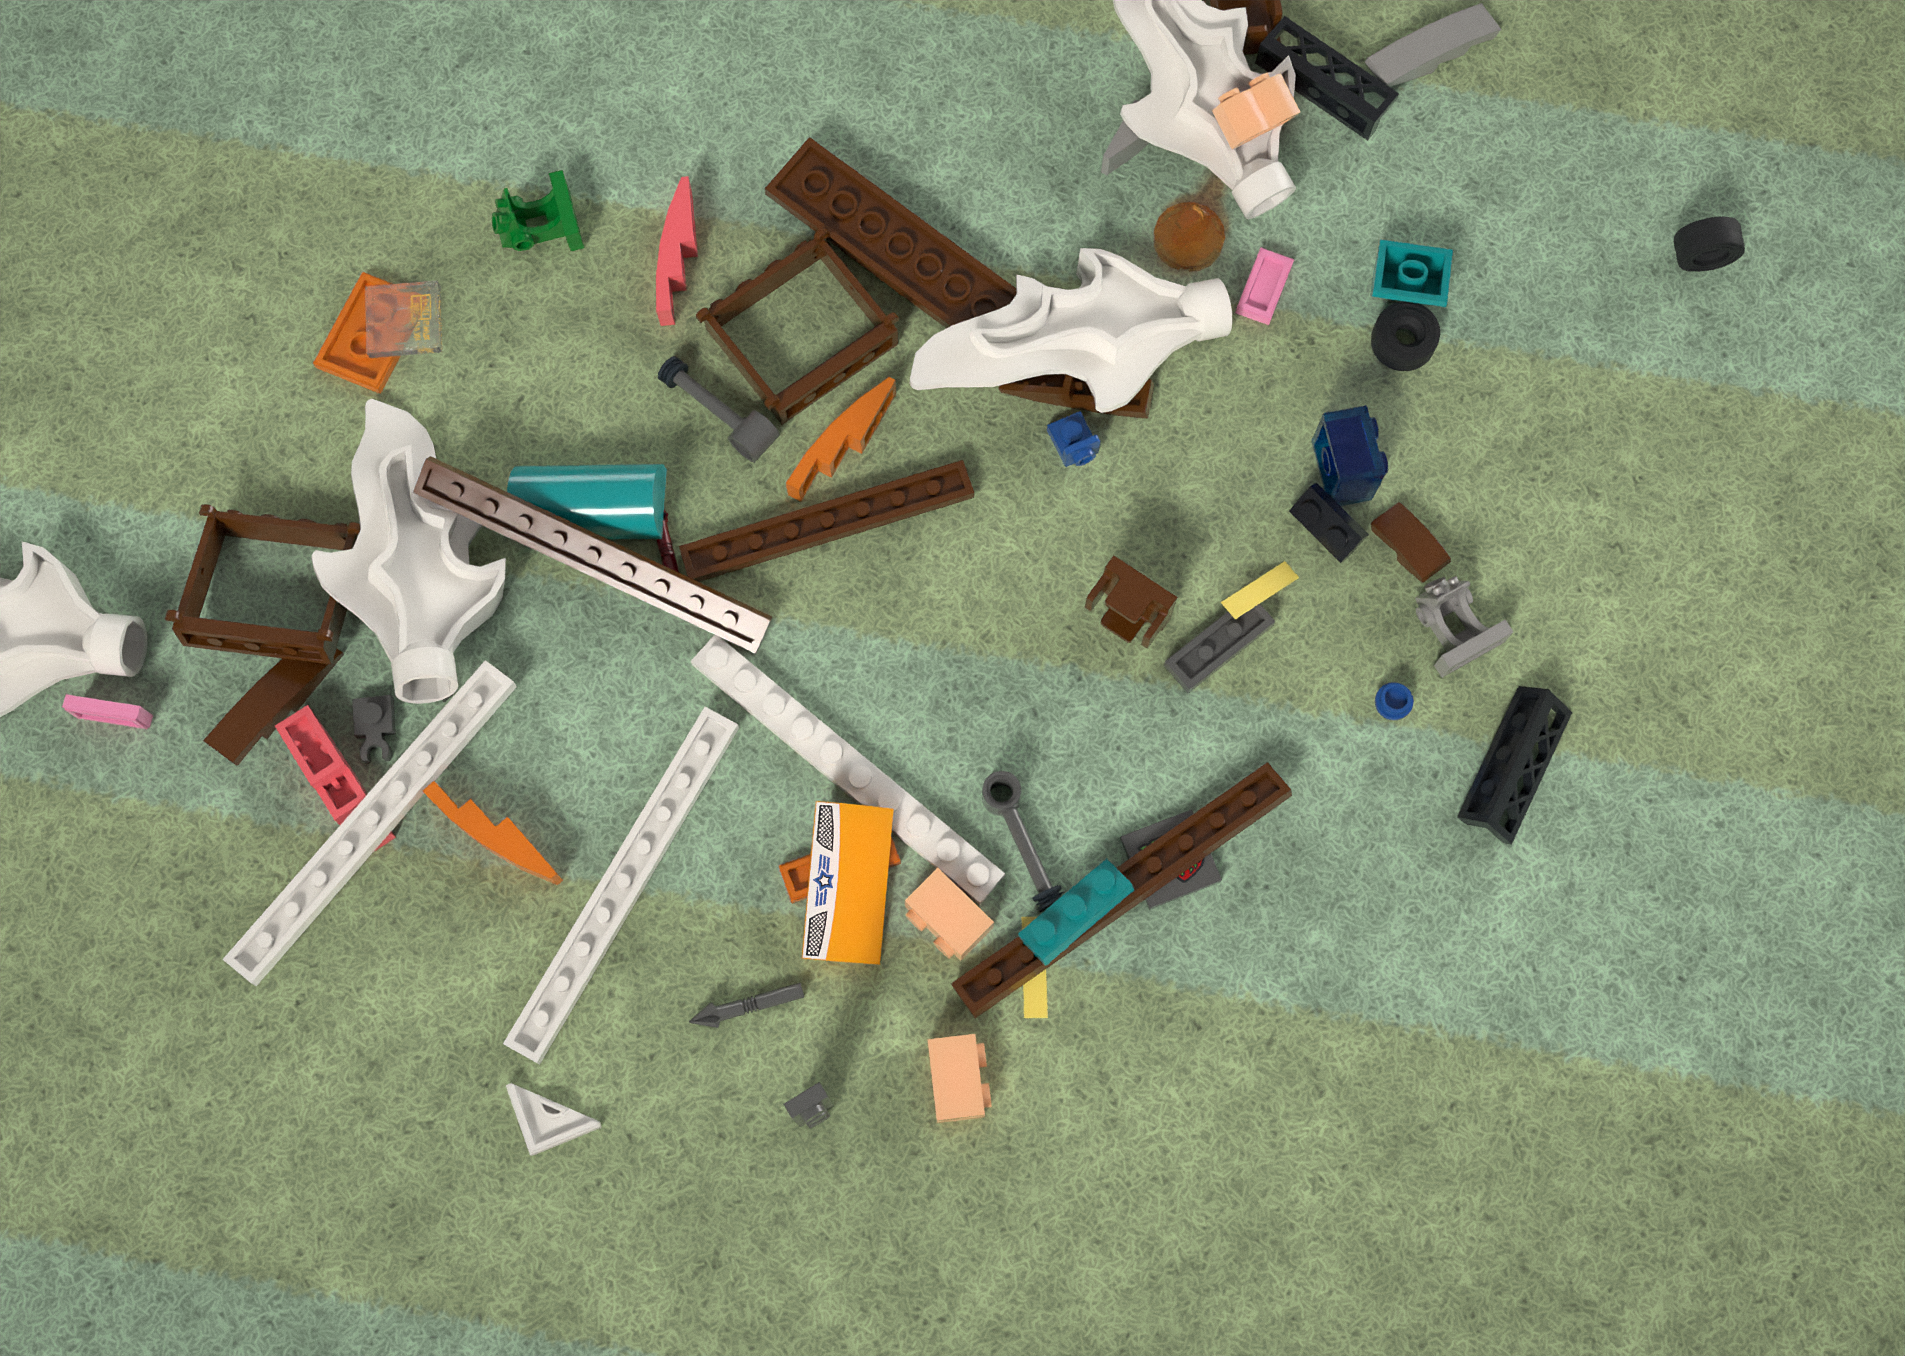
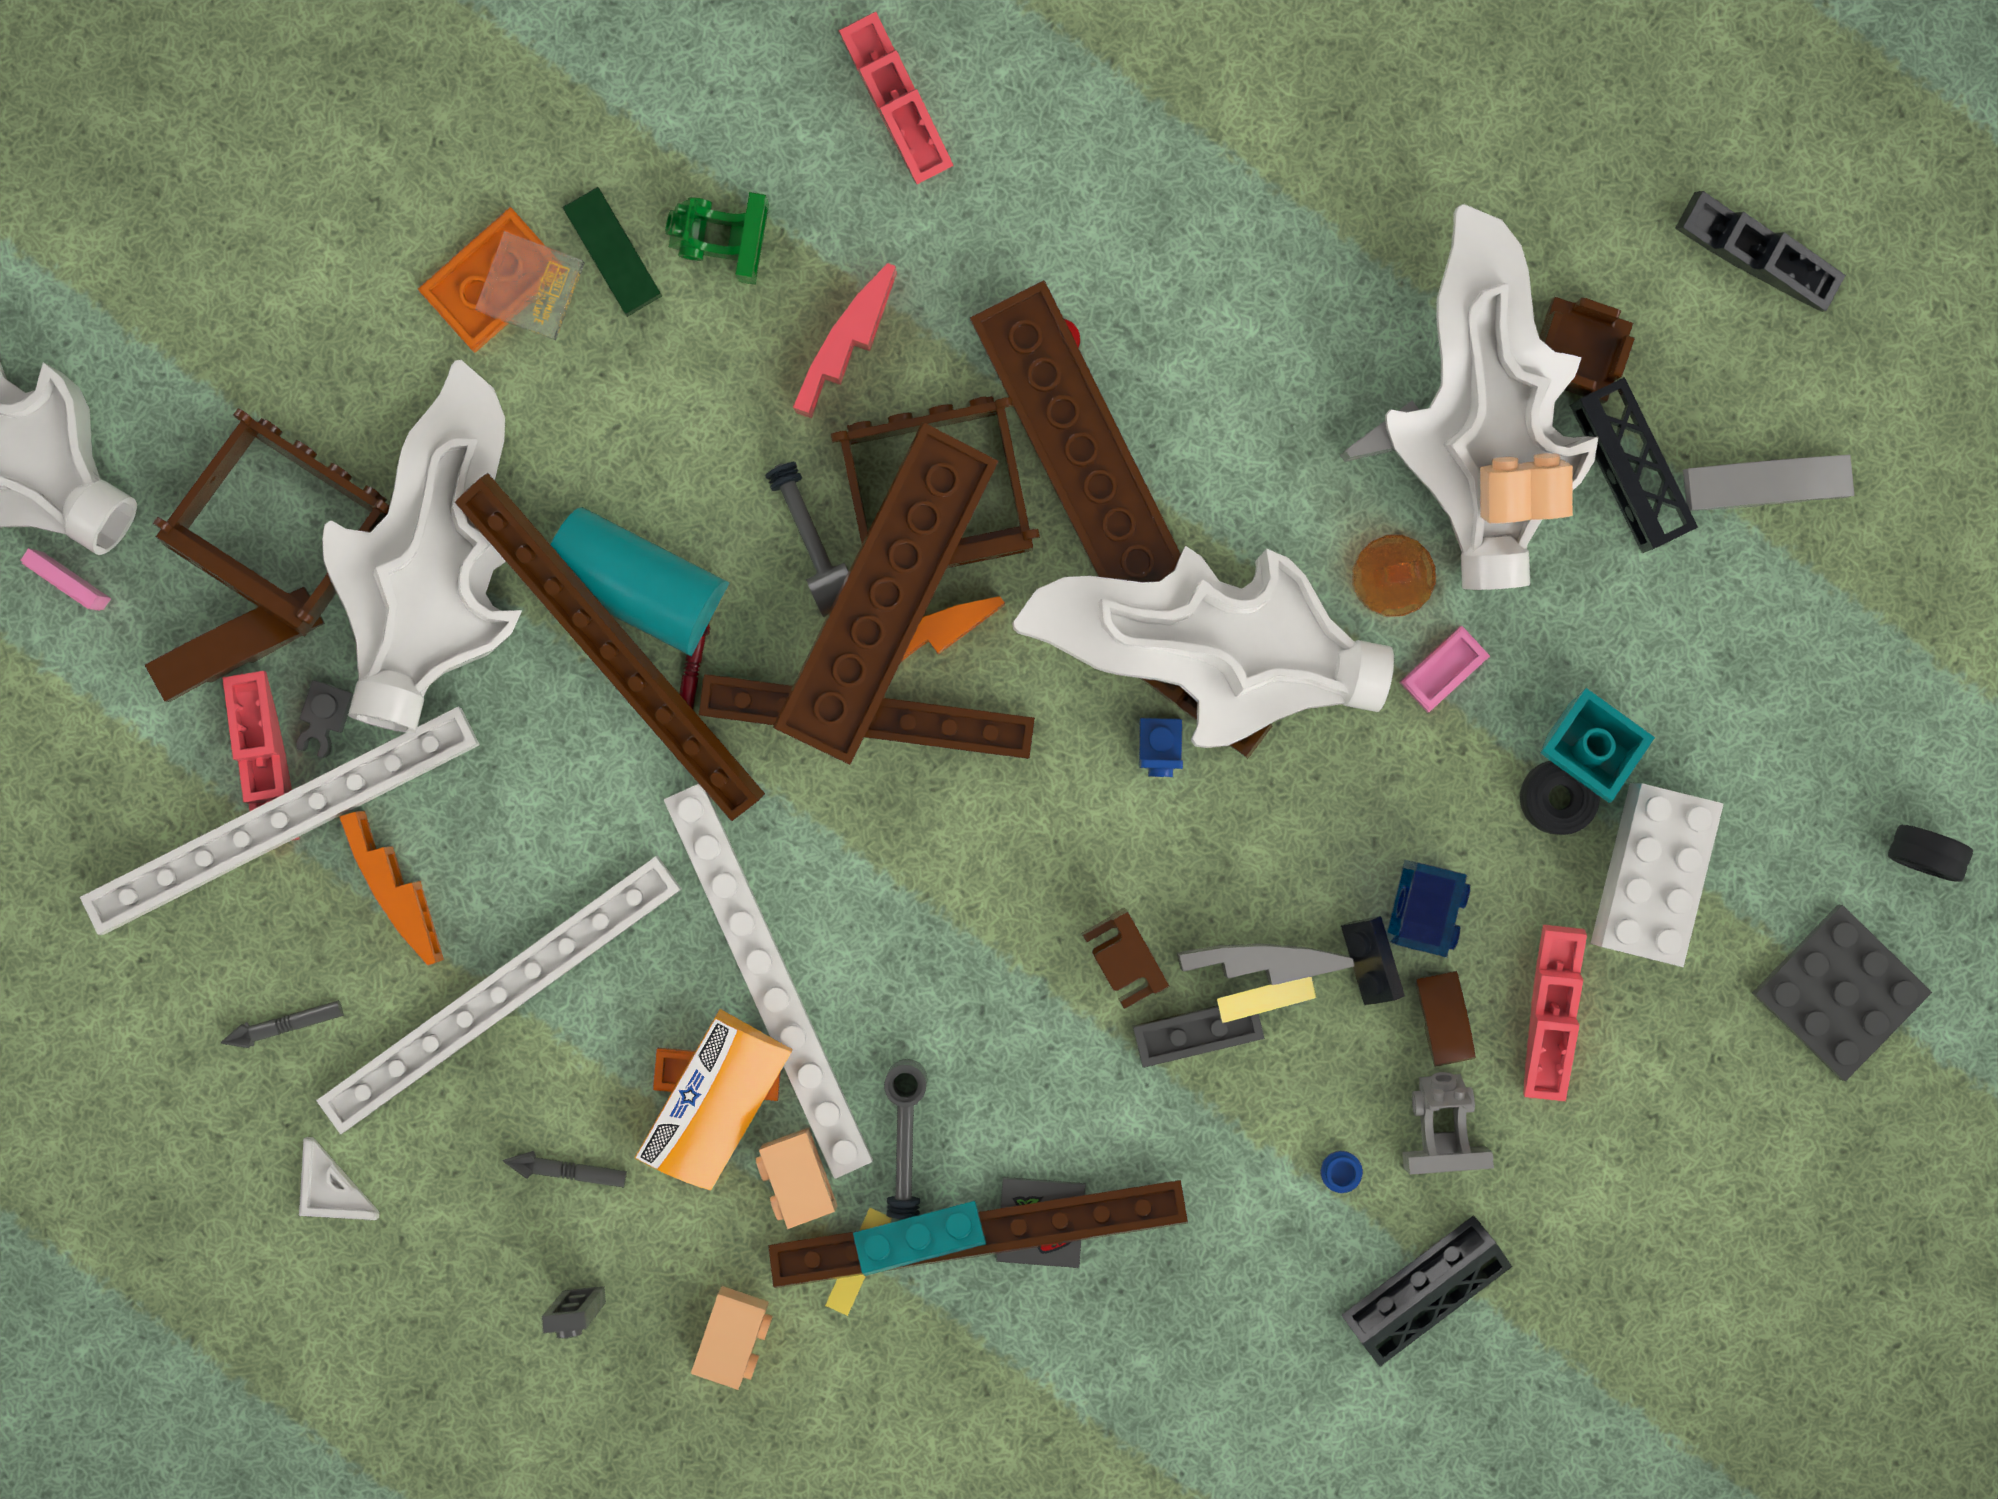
camera: 25 degrees right, 15 degrees up
(417, 1020) = (246, 1035): none -> dark grey piece
(459, 270) = (612, 251): none -> dark green tile
(631, 68) = (896, 98): none -> coral slope
(797, 411) = (885, 593): none -> reddish brown plate
(1249, 557) = (1281, 962): none -> light grey slope
(1493, 500) = (1554, 1013): none -> coral slope
(1512, 356) = (1657, 873): none -> white brick
(1704, 383) = (1841, 992): none -> dark grey plate

